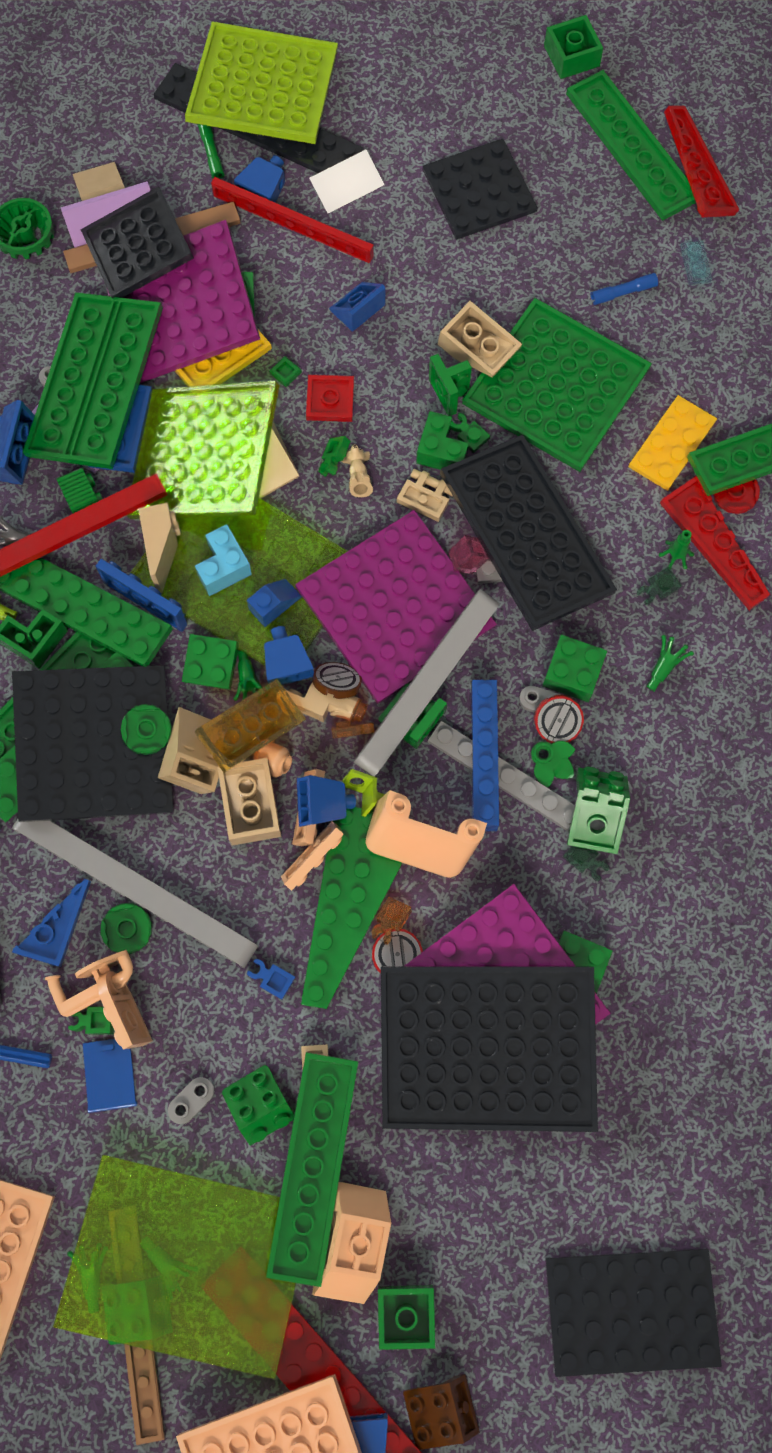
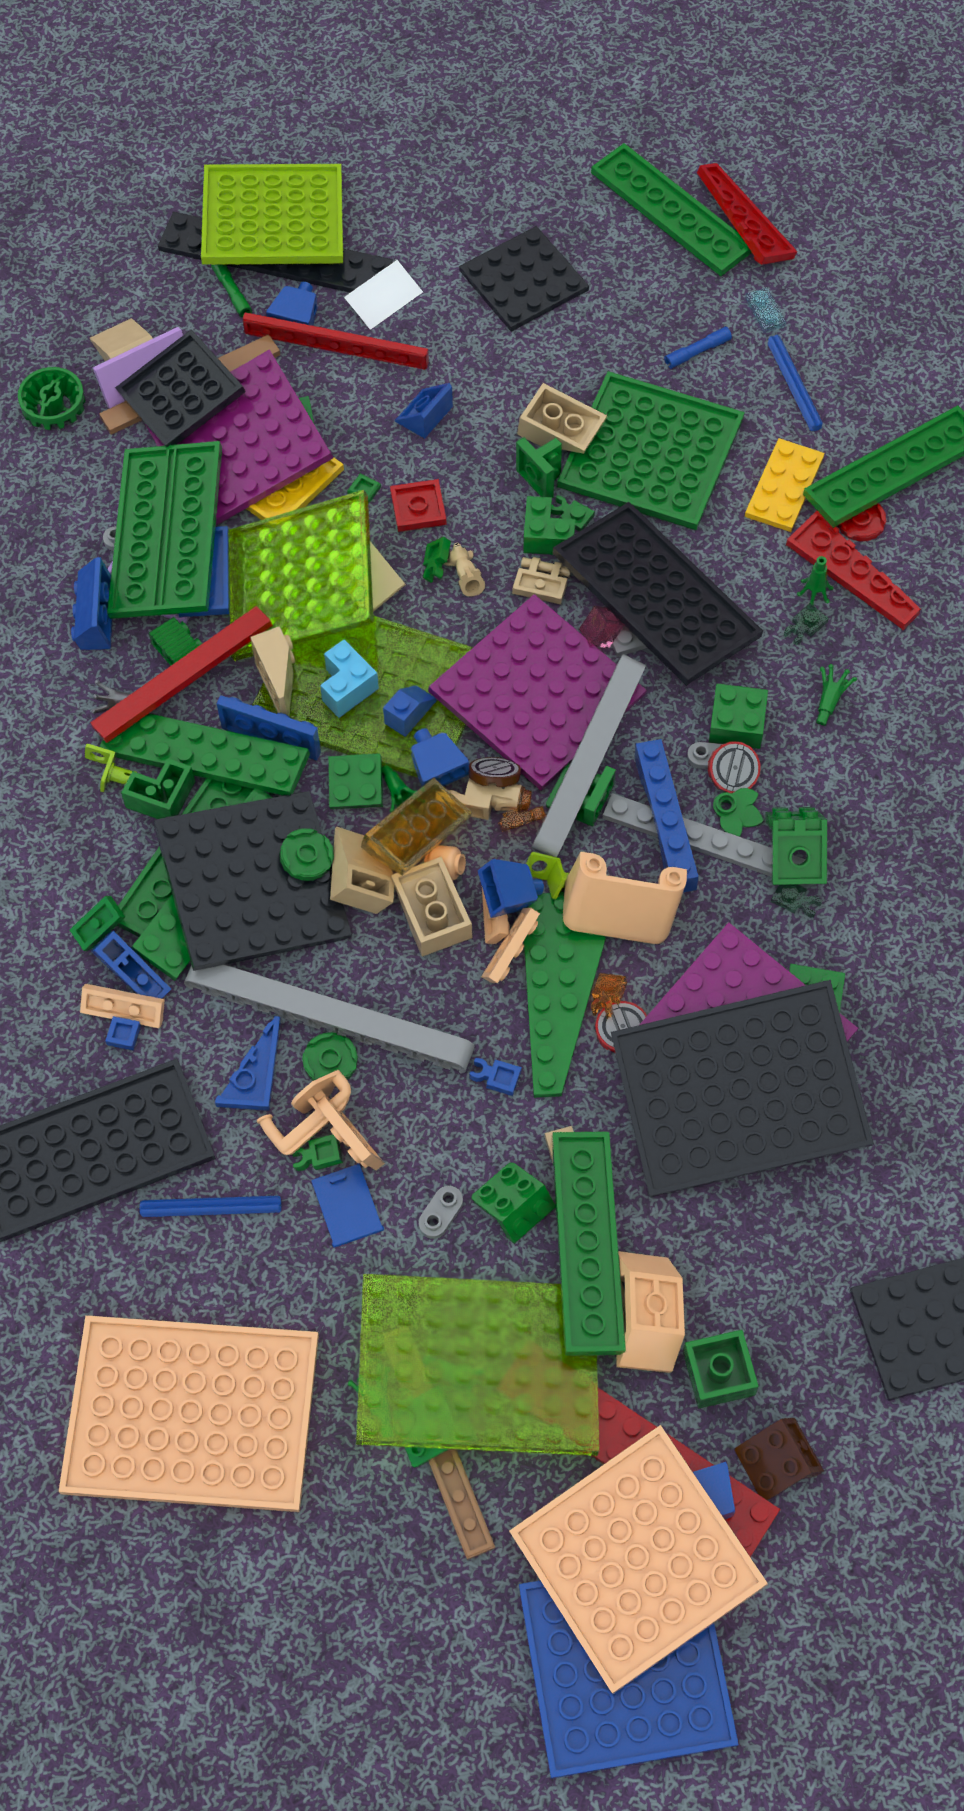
camera: 10 degrees left, 10 degrees down
(573, 46) = (588, 126): green brick -> none
(706, 342) = (795, 383): none -> blue axle

